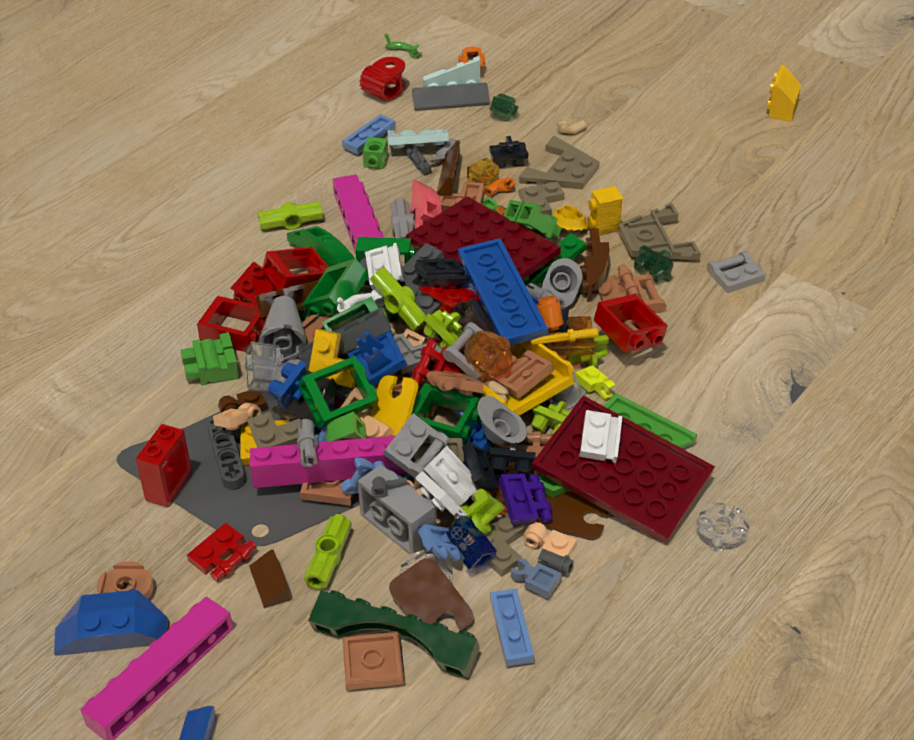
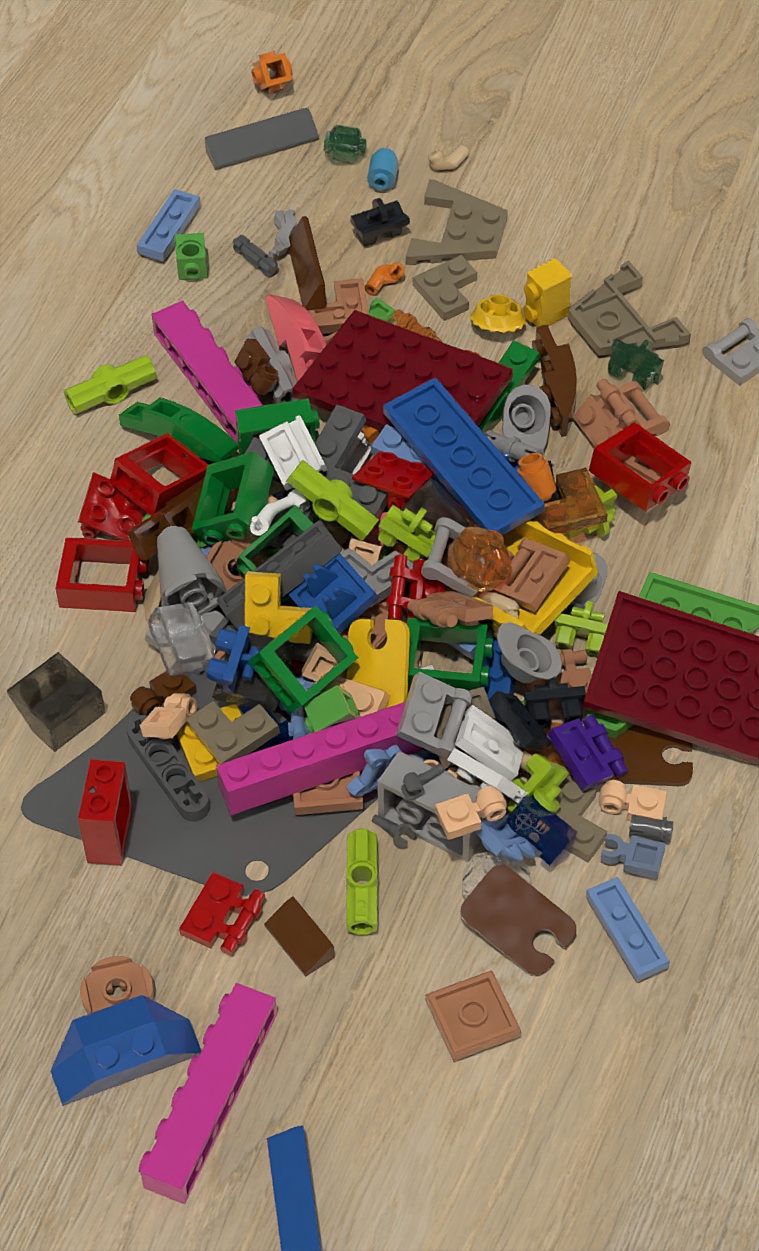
camera: 15 degrees left, 10 degrees up
(168, 393) = (57, 701): none -> clear smoke slope
(210, 360) = (95, 635): bright green hips -> none
(307, 443) = (294, 744): light grey pin -> none
(342, 616) = (564, 979): dark green arch -> none
(368, 524) = (402, 829): none -> dark grey hand
(377, 77) = (152, 130): red piece -> none
(387, 219) = (254, 366): none -> reddish brown plate
(402, 46) = (160, 60): bright green piece -> none
(407, 514) = (461, 816): none -> light nougat plate
(437, 137) = (244, 222): light aqua wing -> none
(441, 272) = (374, 446): black plate -> none
(461, 74) = (268, 104): light aqua wing -> none
(483, 172) = (355, 260): clear yellow brick -> none
(523, 125) = (382, 169): none -> dark azure brick
(530, 217) = (456, 329): bright green hips -> none
(571, 335) = (572, 505): yellow piece -> none
(593, 379) = (614, 556): neon yellow plate -> none
(600, 436) = (659, 645): white plate -> none
(784, 95) = (725, 55): yellow slope -> none

